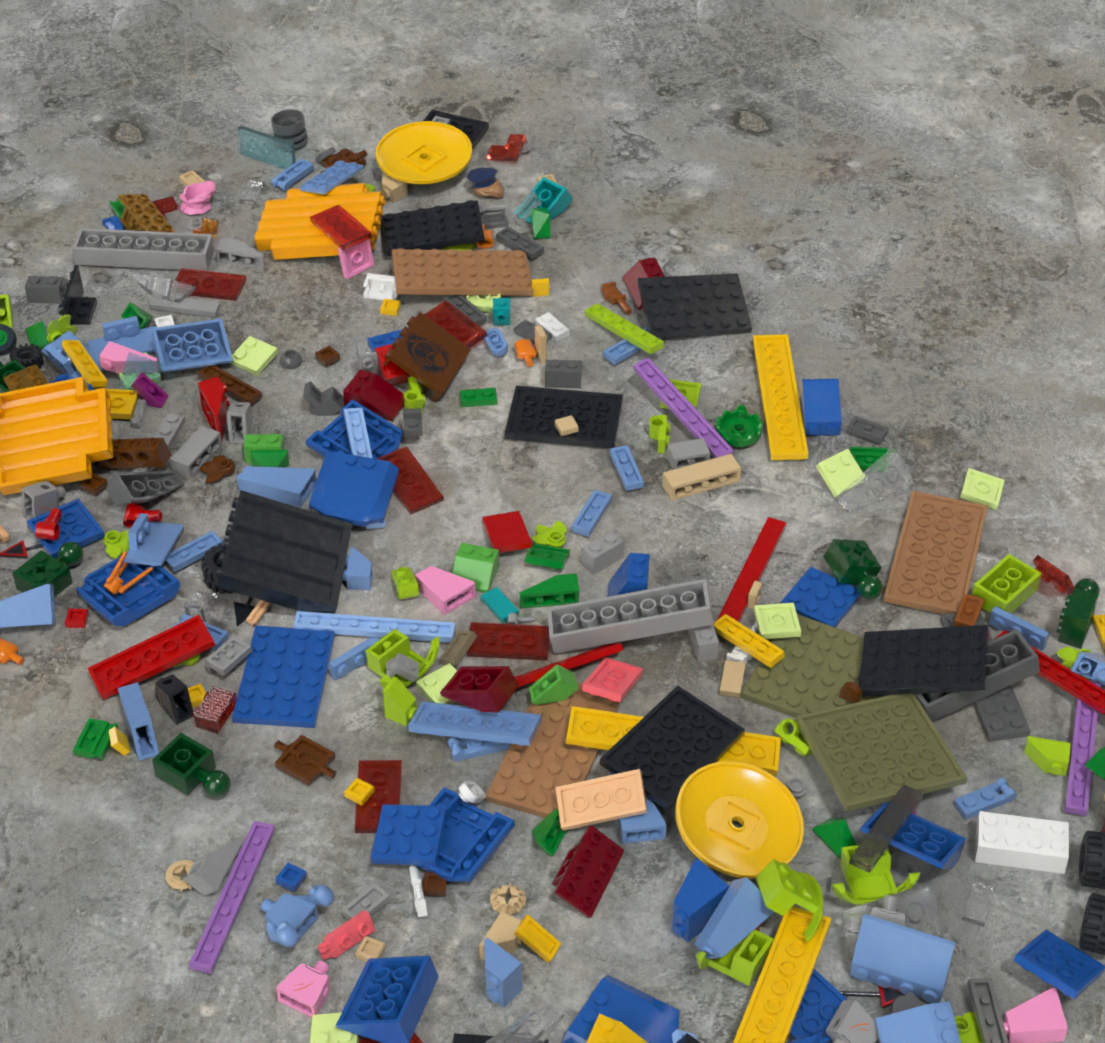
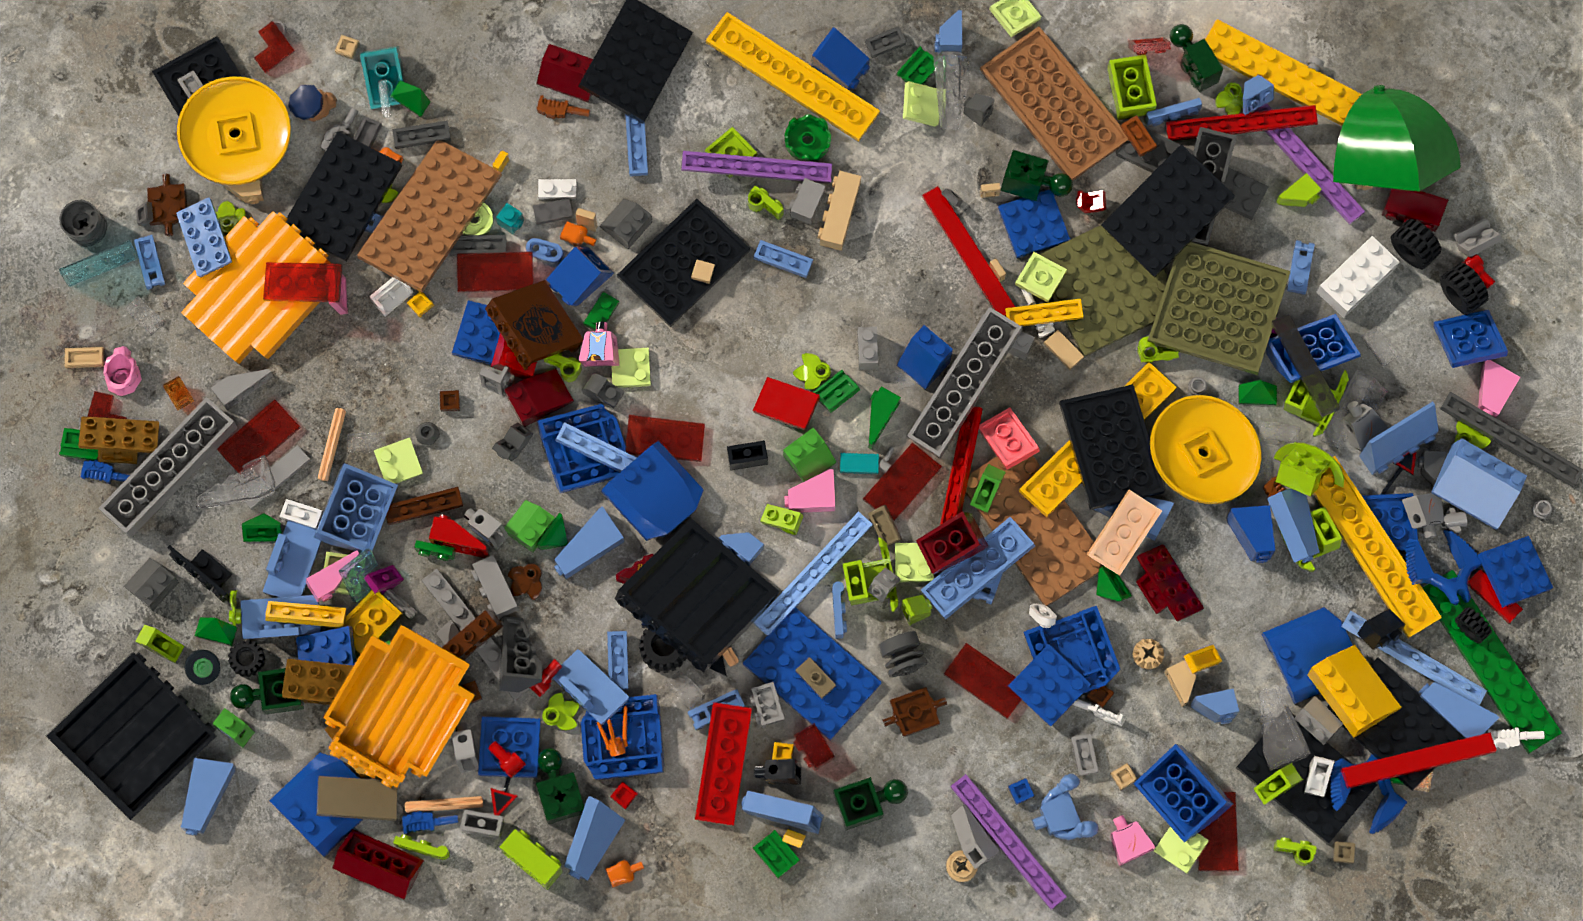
camera: 55 degrees left, 30 degrees up
(199, 409) = (442, 552): none -> green plate
(246, 316) = (331, 444): none -> light nougat axle
(278, 673) = (815, 678): none -> dark tan plate
(346, 935) = (1105, 788): coral hinge -> none
(348, 715) = (904, 658): none -> dark grey wheel
(359, 791) = (978, 693): yellow tile -> none
(438, 529) = (747, 455): none -> black brick
(446, 405) = (599, 347): none -> bright pink torso
(449, 435) = (632, 368): none -> yellowish green plate
(495, 366) = (579, 275): none -> blue slope
(591, 513) = (814, 323): medium blue plate -> none
(624, 328) = (614, 136): lime plate -> none
(785, 533) = (952, 197): none -> flat silver tile
(816, 553) = (990, 190): none -> tan tile
(851, 692) = (1151, 282): reddish brown tile -> none
(876, 508) = (978, 108): none -> dark grey slope
(878, 620) = (1091, 201): none -> red bracket
(918, 452) = (950, 34): none -> medium blue slope

